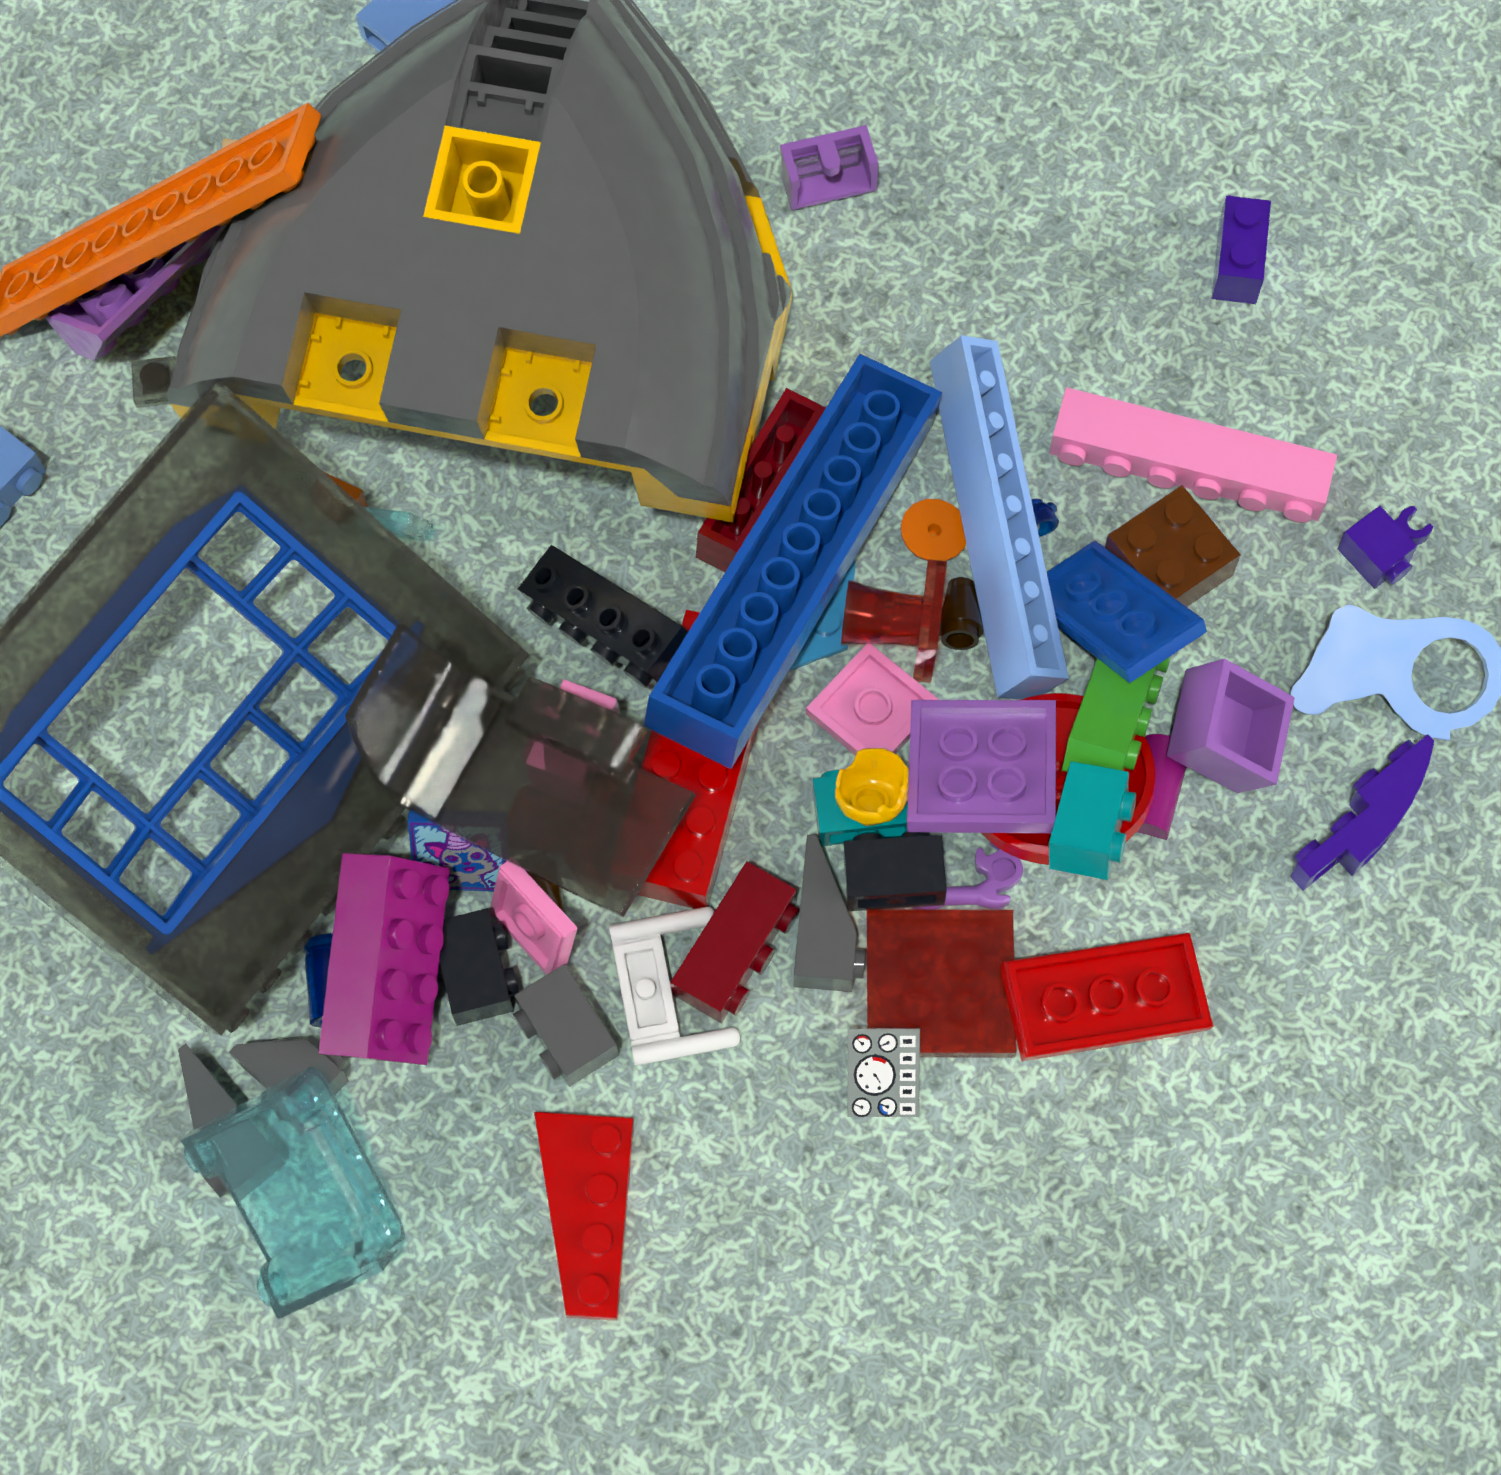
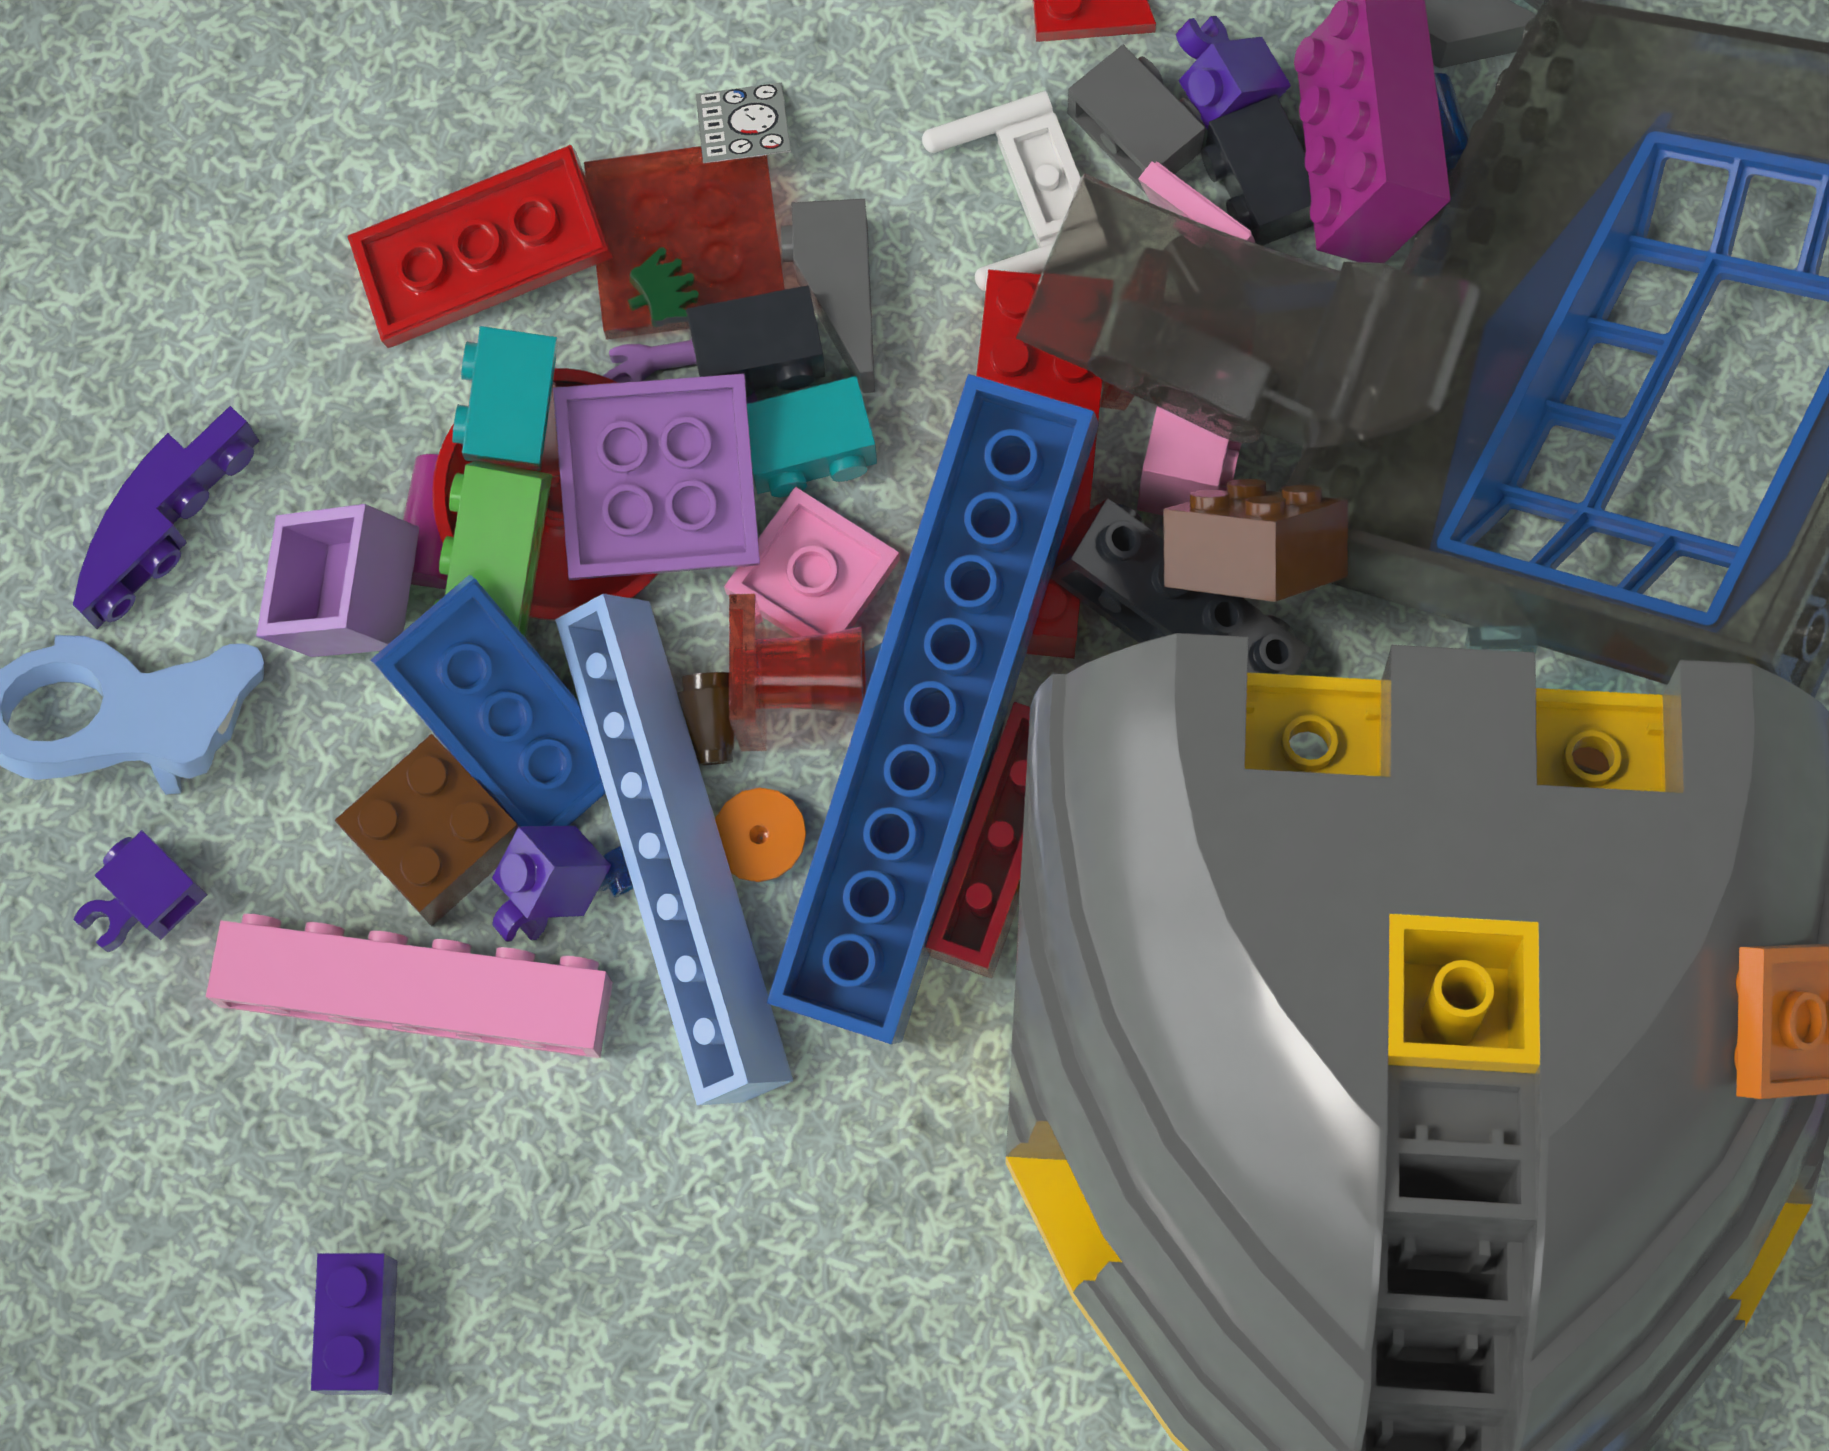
camera: 175 degrees right, 5 degrees up
(482, 1043) = (1227, 71): none -> dark purple brick
(546, 610) = (1256, 541): none -> reddish brown brick
(736, 943) = (944, 245): dark red brick -> none
(829, 167) = (981, 1373): medium lavender window -> none
(873, 787) = (794, 413): yellow hair -> none
(962, 930) = (662, 290): none -> dark green piece
(1088, 507) = (545, 877): none -> dark purple brick

